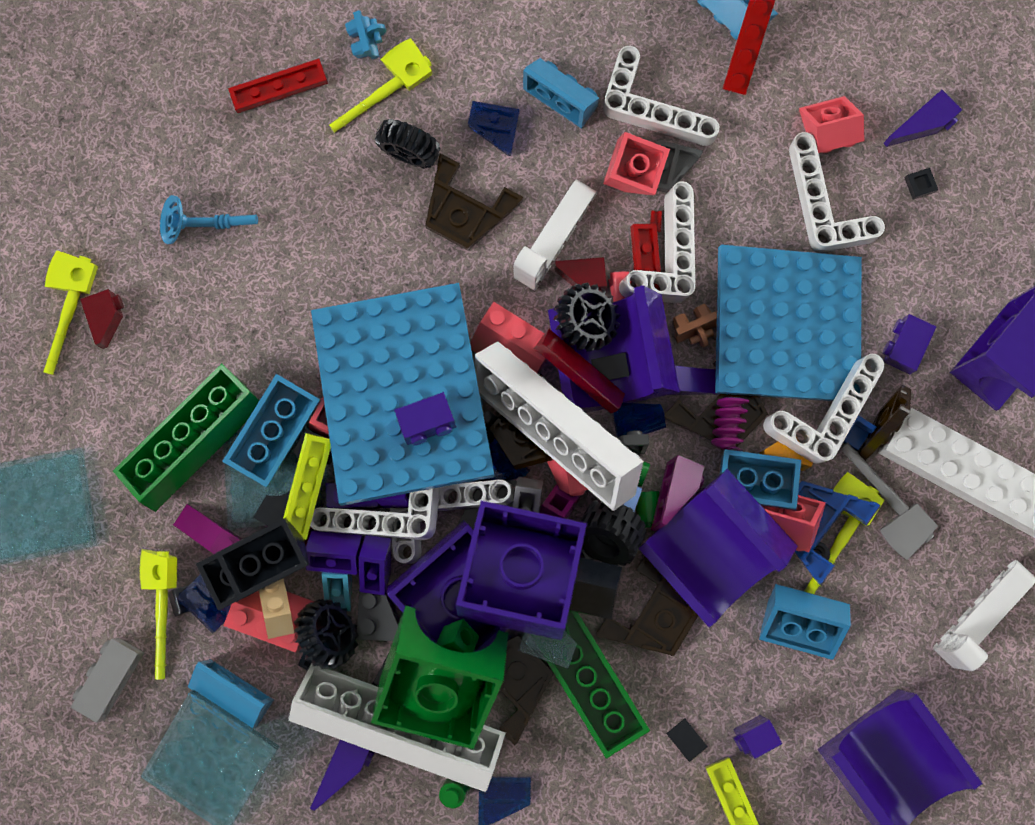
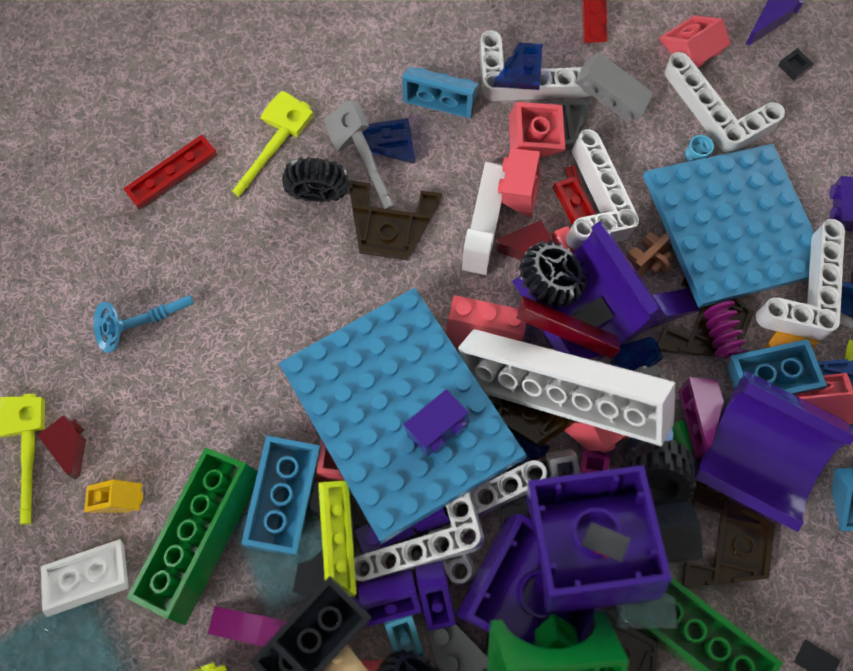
camera: 20 degrees left, 10 degrees down
(83, 439) = (83, 577): none -> white plate
(130, 378) = (113, 497): none -> yellow slope
(369, 34) = (232, 94): dark azure hips -> none
(458, 98) = (347, 126): none -> light grey piece
(523, 577) = (606, 542): none -> black piece
(600, 212) = (520, 180): none -> coral slope
(645, 98) = (522, 68): none -> clear blue wing
(727, 148) = (613, 87): none -> light grey brick
(789, 235) = (699, 148): none -> medium azure wheel

